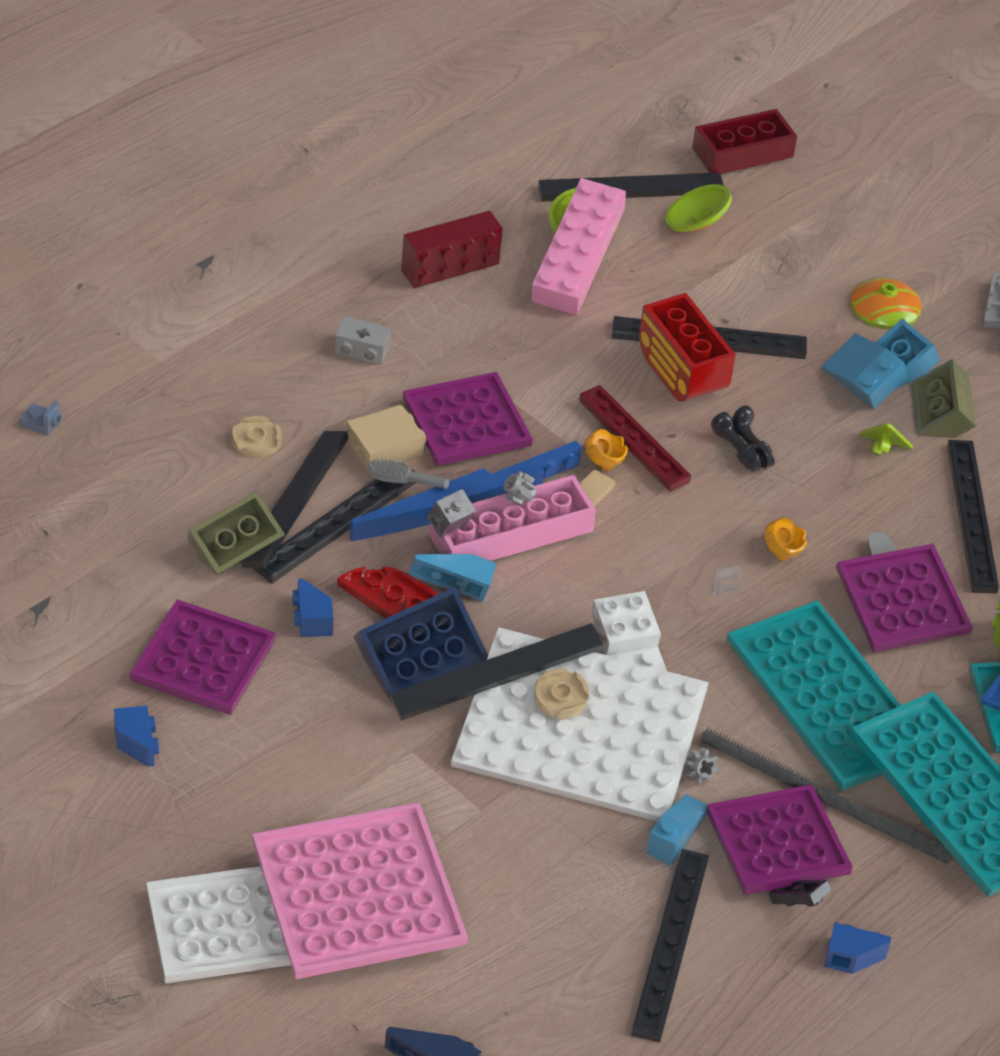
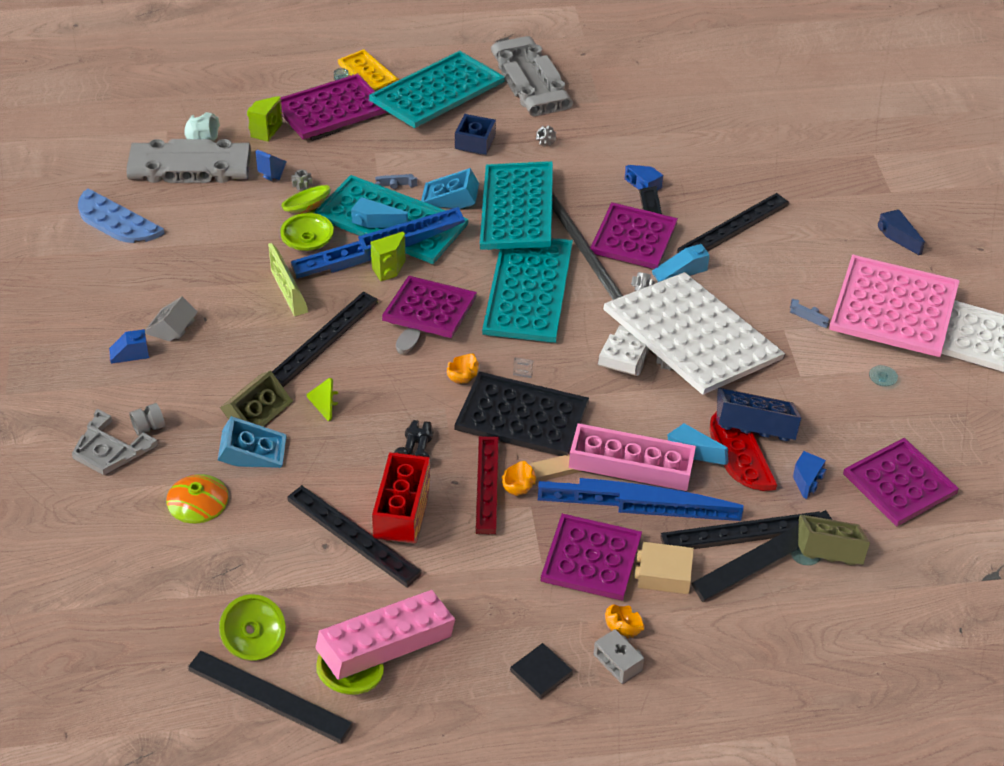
camera: 140 degrees left, 0 degrees up
(42, 418) = (917, 721): sand blue bracket -> none
(134, 733) = (975, 454): blue slope -> none
(256, 437) = (756, 625): tan tile -> none
(310, 794) = (883, 375): none -> clear light blue piece
(383, 366) = (624, 620): none -> light orange hair
(402, 473) = (679, 530): light grey piece -> none
(423, 306) = (541, 670): none -> black tile
(451, 249) = (485, 689): dark red brick -> none
(451, 513) = (687, 448): flat silver head -> none
(466, 840) = (809, 314): none -> sand blue piece
(496, 671) = (728, 363): black tile -> none
(519, 488) = (623, 447): light grey gear -> none
(561, 694) = (698, 336): tan tile -> none
(676, 529) = (522, 414): none -> black plate
(744, 141) = (141, 673): dark red brick -> none
(866, 370) = (284, 441): dark azure slope -> none

